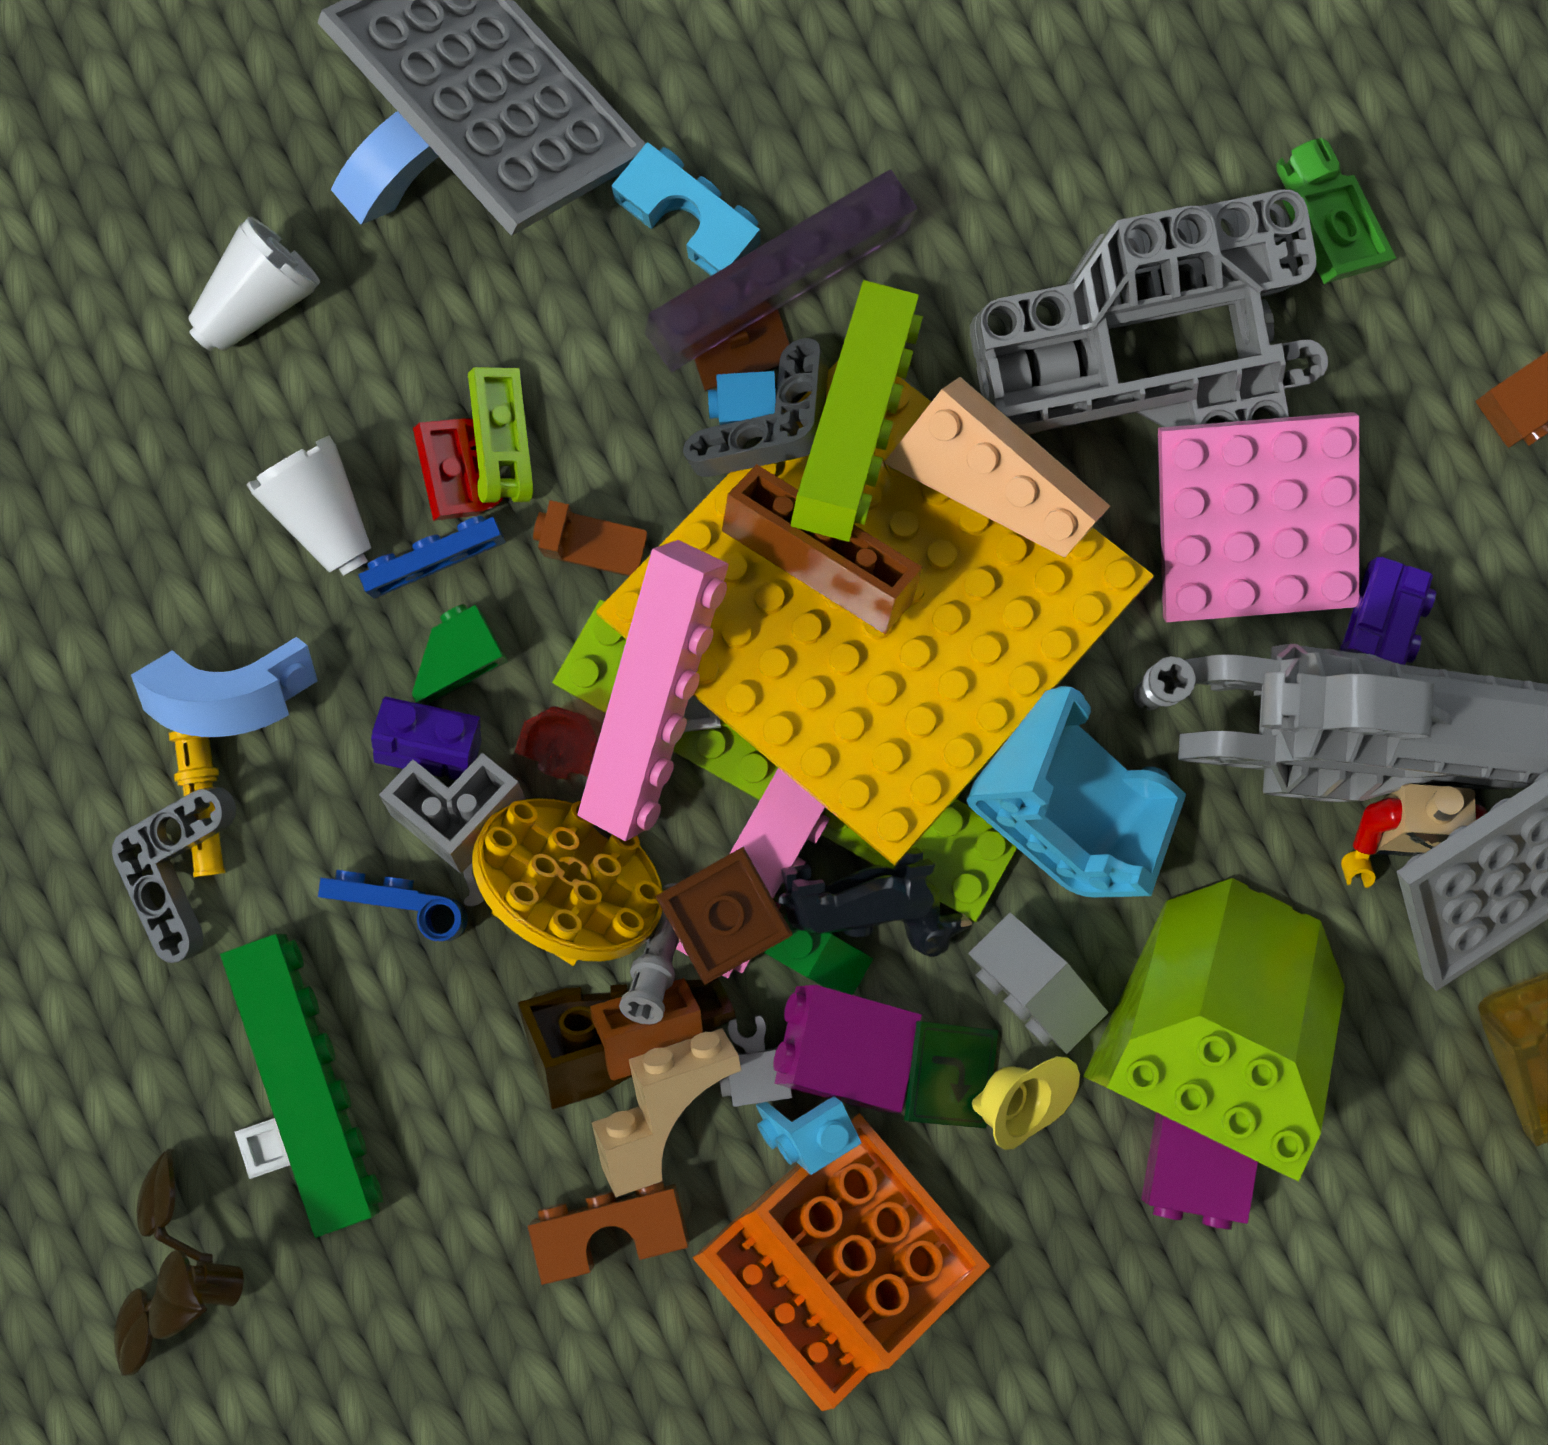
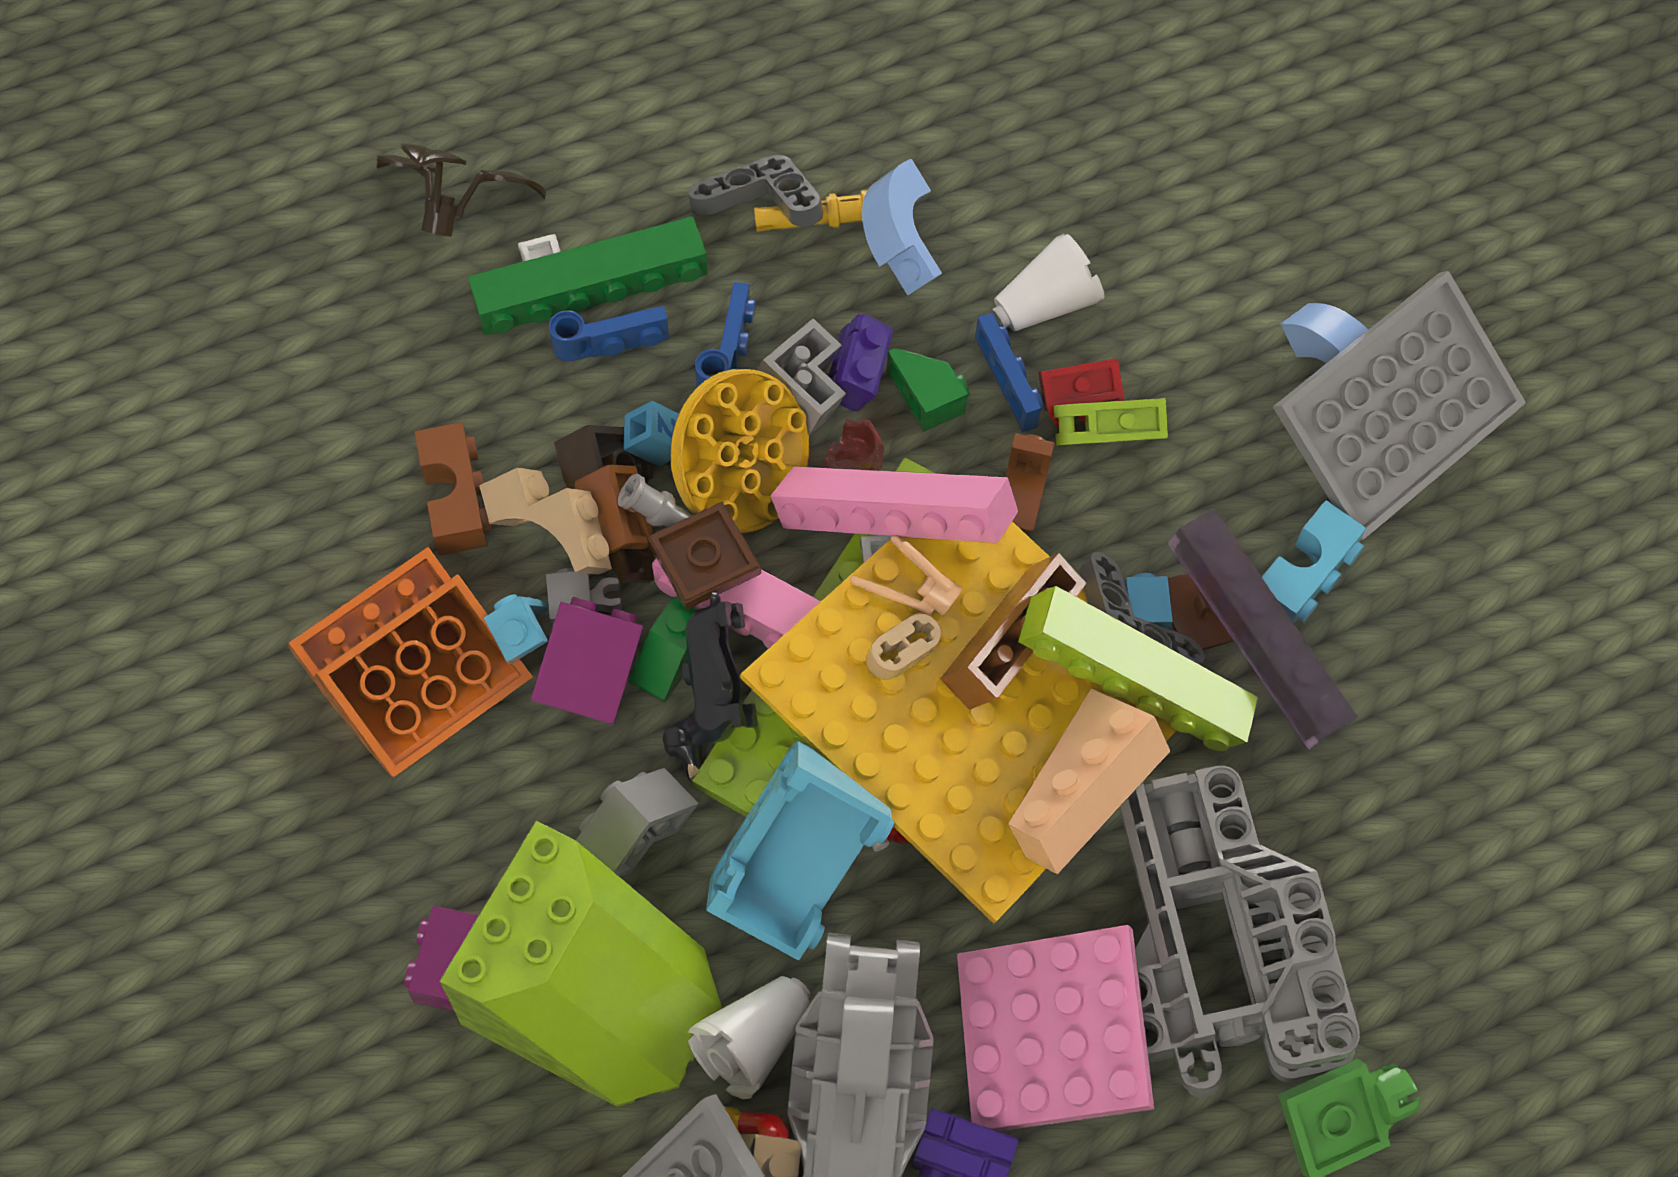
camera: 85 degrees right, 20 degrees down
(249, 287) = (1226, 247): white cone -> none
(391, 1049) = (606, 336): none -> blue plate
(533, 986) = (650, 432): none -> dark azure brick
(768, 639) = (937, 589): none -> light nougat plant
(837, 684) = (898, 639): none -> tan beam
(948, 1072) = (560, 752): dark green piece -> none
(1025, 1100) = (527, 798): light yellow piece -> none
(1165, 684) = (892, 921): light grey pin -> none
(1271, 840) = (750, 1035): none -> white cone

